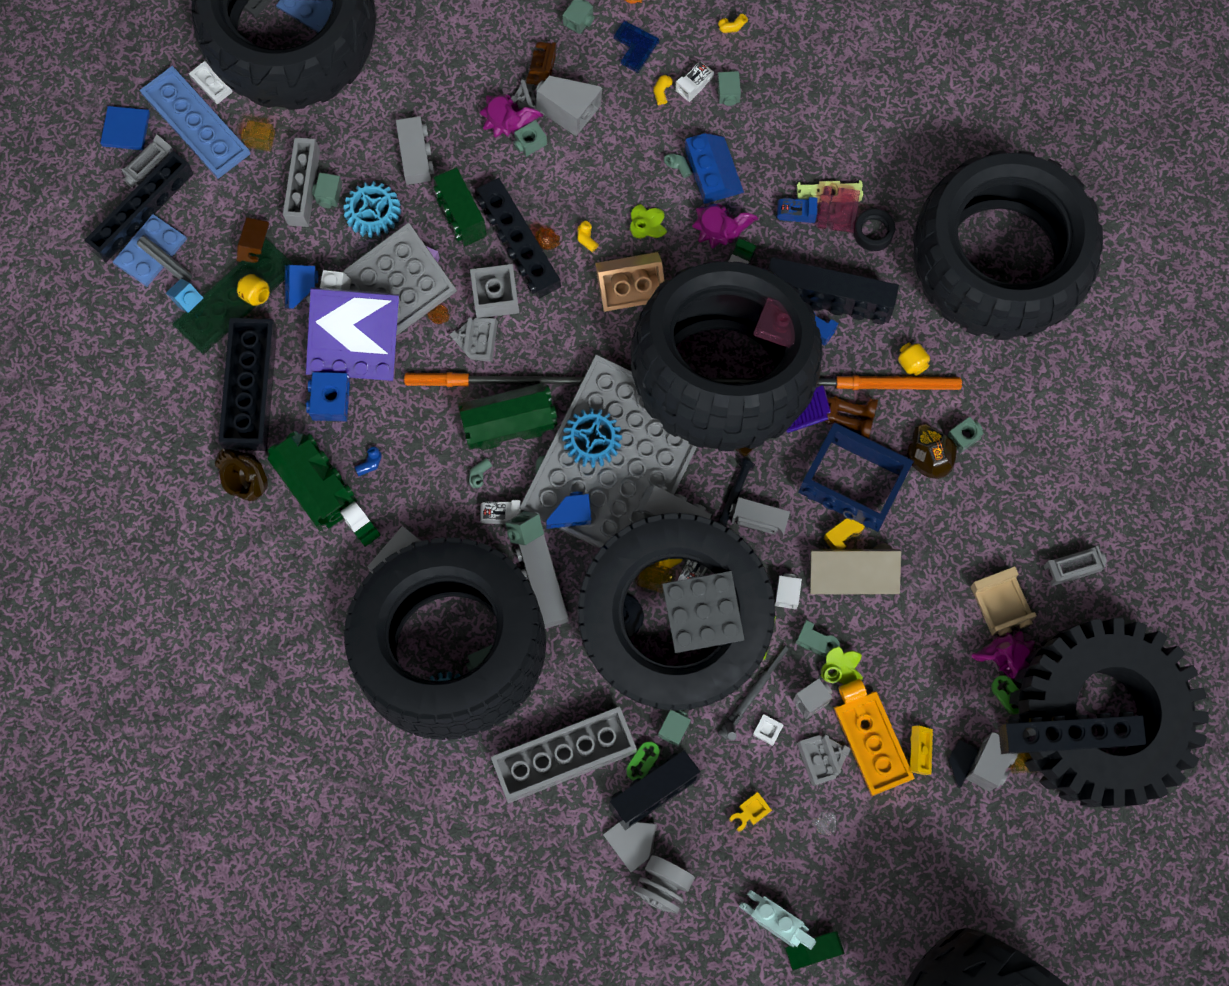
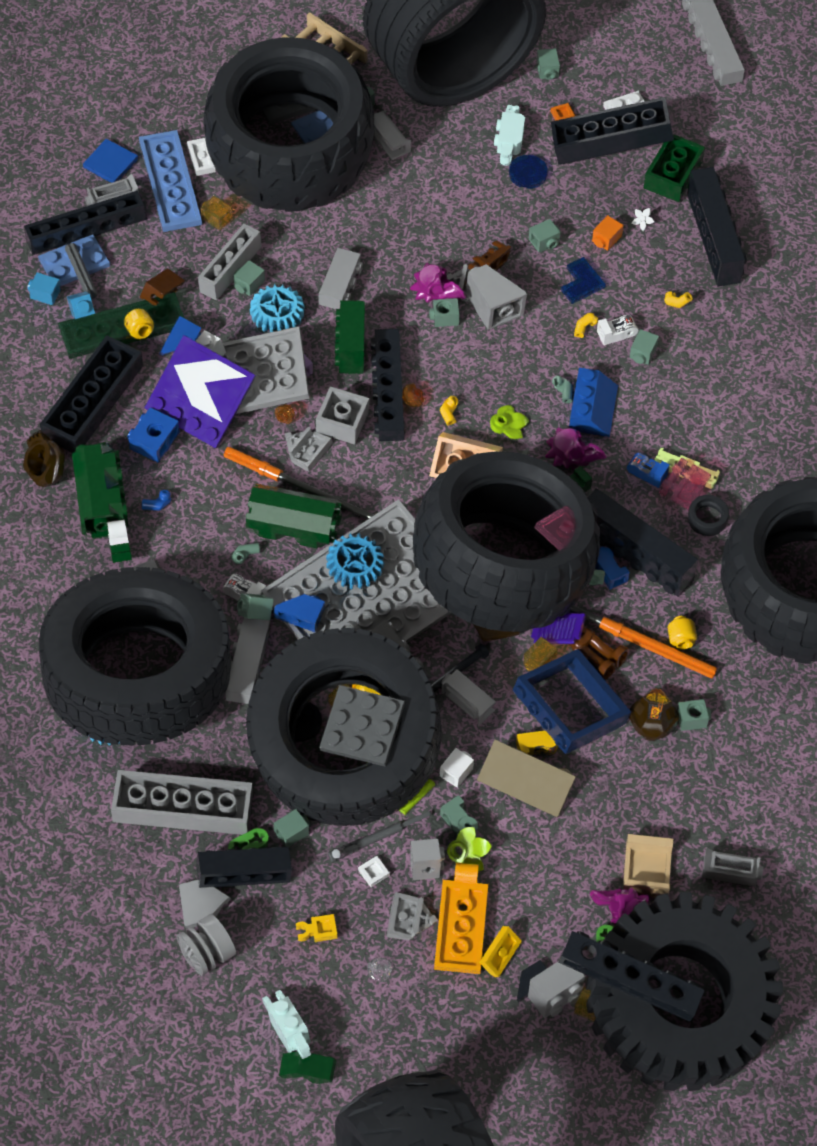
camera: 25 degrees right, 15 degrees down
(138, 294) = (44, 288): none -> dark azure brick
(802, 445) = (539, 654): none -> clear yellow brick

